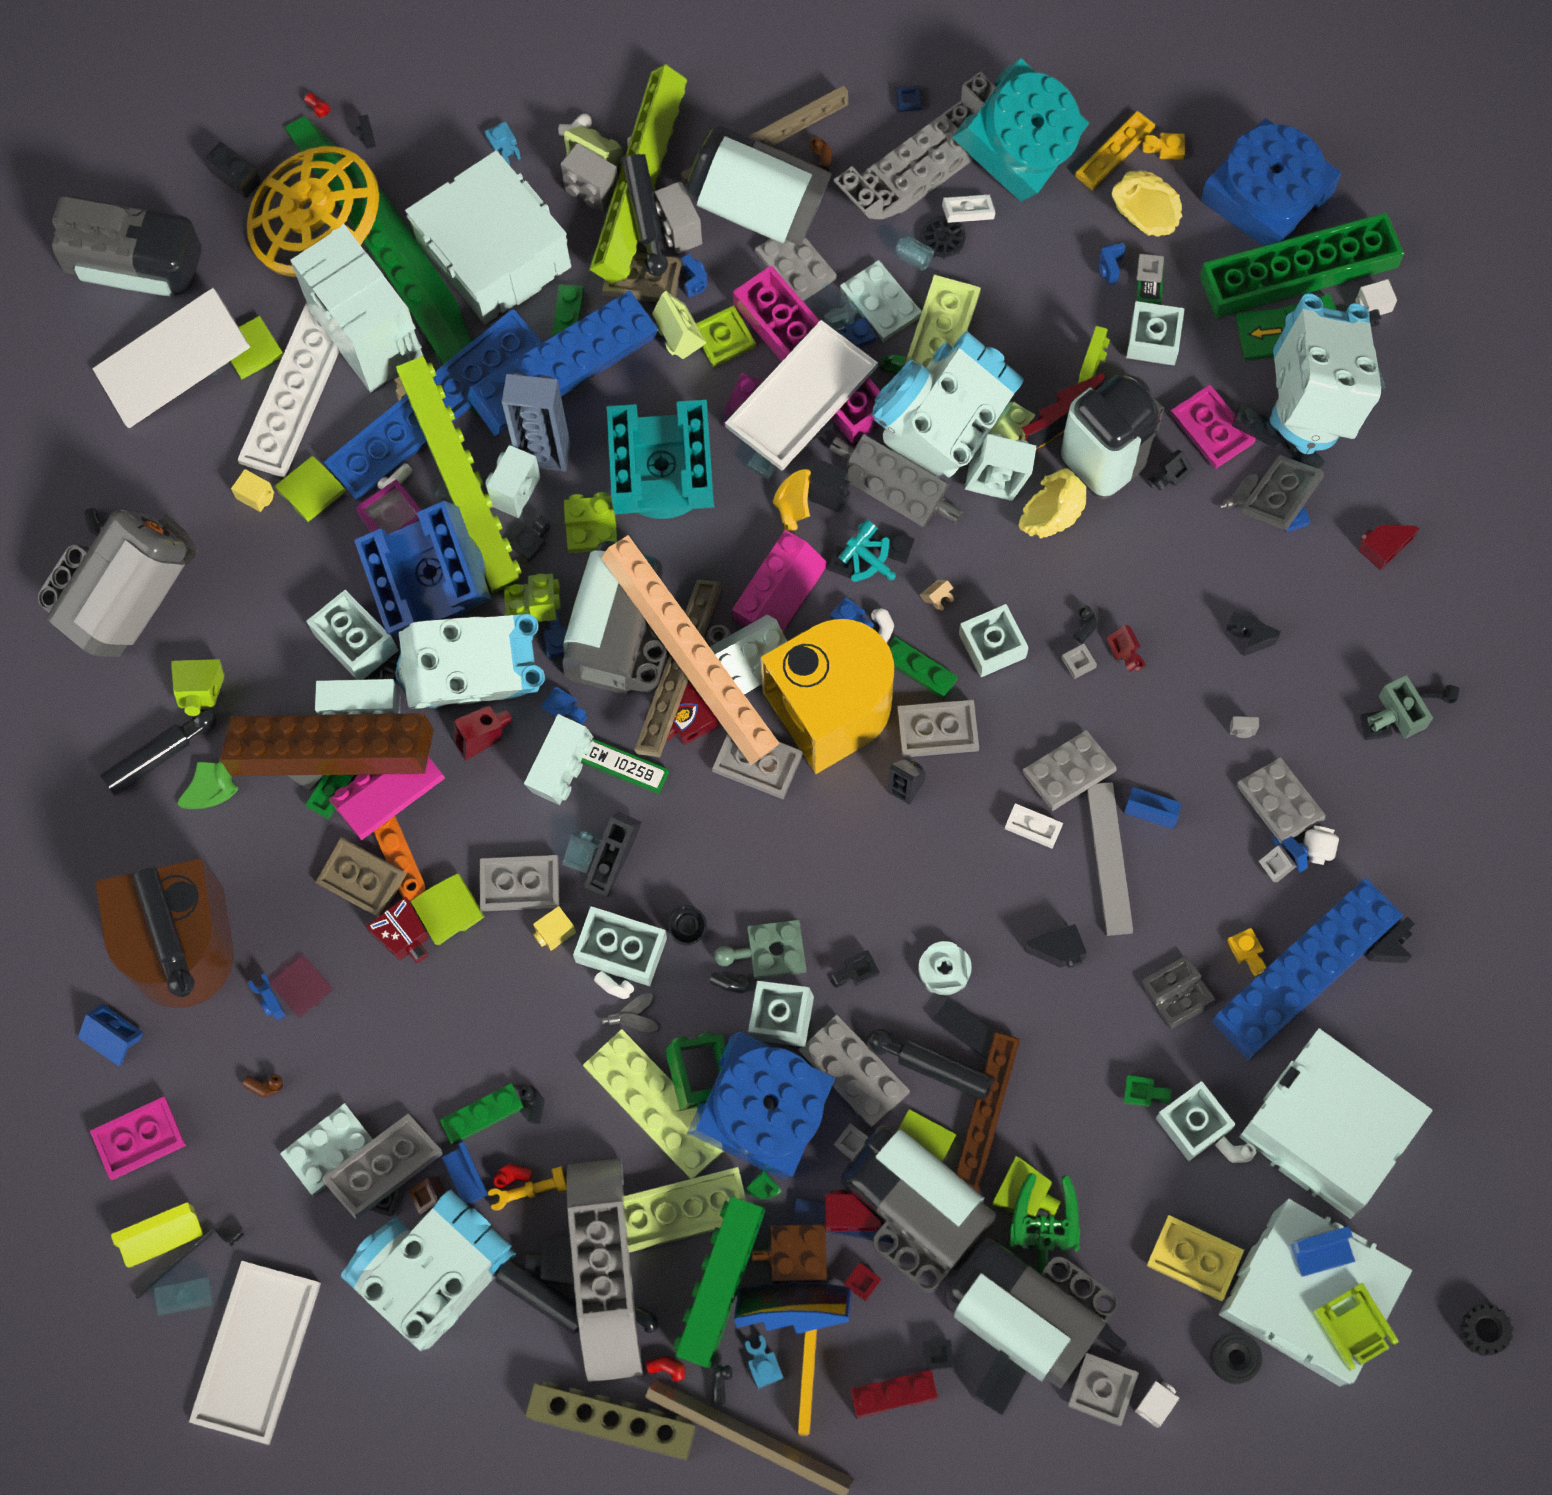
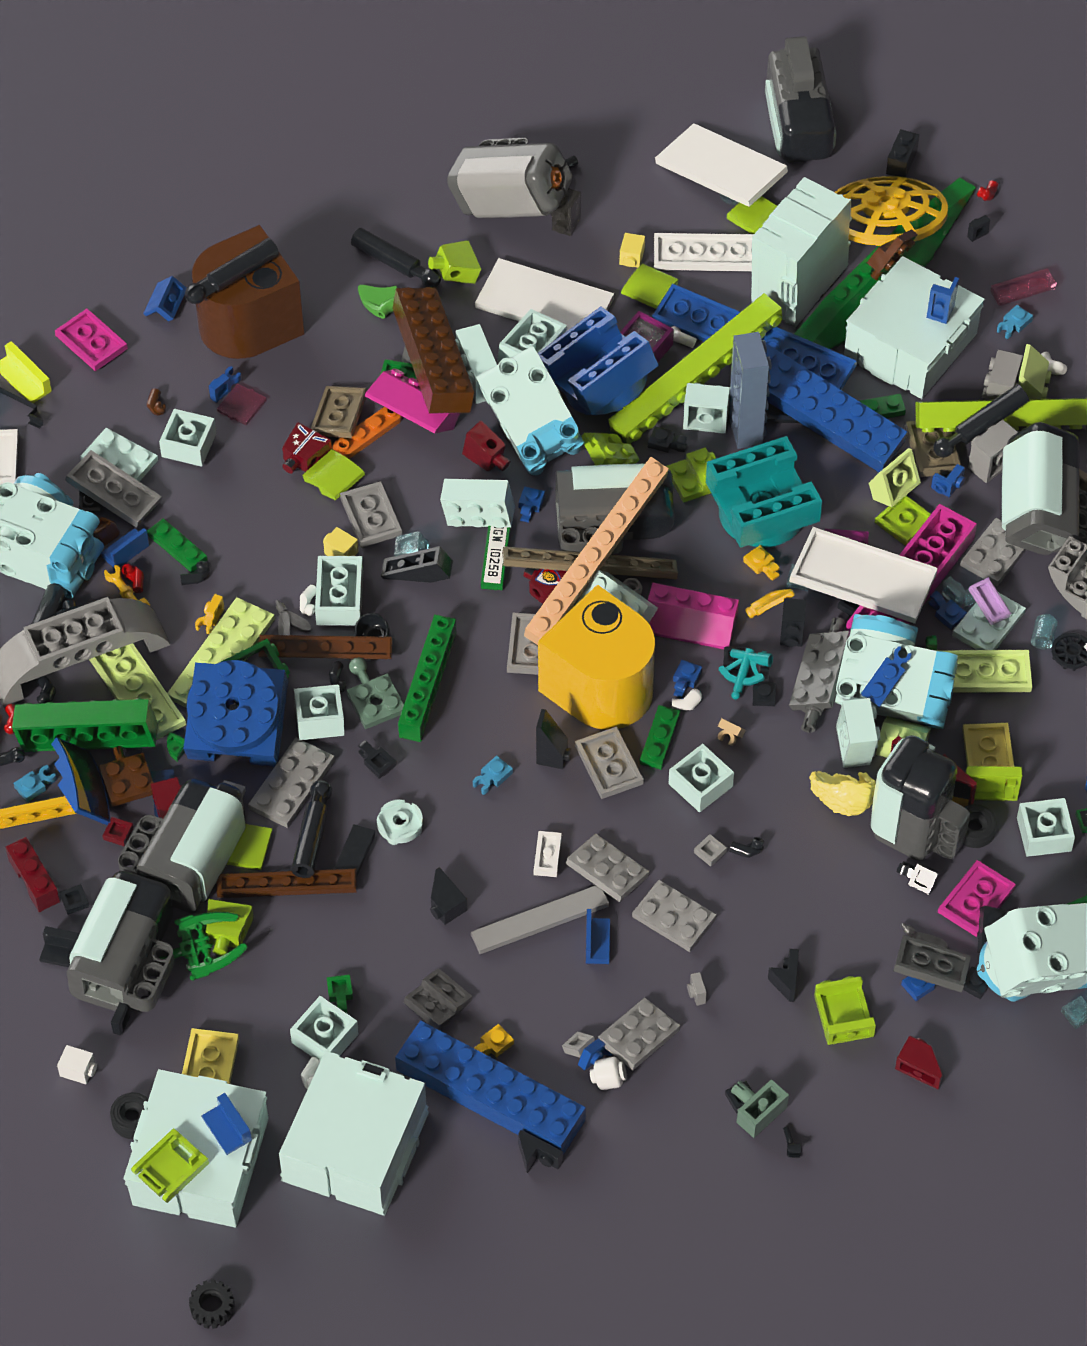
camera: 70 degrees right, 15 degrees down
(274, 611) = (517, 289): none -> white tile
(337, 1059) = (187, 437): none -> light aqua brick
(394, 219) = (889, 253): none -> reddish brown plate
(463, 117) = (1023, 287): none -> clear pink plate
(500, 186) = (942, 302): none -> blue panel
(594, 1096) = (213, 612): none -> yellow plate
(690, 980) = (330, 646): none -> reddish brown tile
(727, 495) = (761, 560): none -> yellow plate
(769, 884) = (427, 678): none -> green brick
(867, 288) = (989, 601): none -> lavender tile
(911, 850) = (494, 773): none -> dark azure plate
(968, 409) = (885, 678): none -> blue plate
(1046, 356) = (988, 745): none -> light yellow plate
(1103, 1389) = (78, 1023): light grey plate -> none
(1124, 644) = (737, 880): dark red plate -> none
(1144, 722) = (674, 915): none -> light grey plate
(1307, 595) = (844, 1010): none -> lime panel

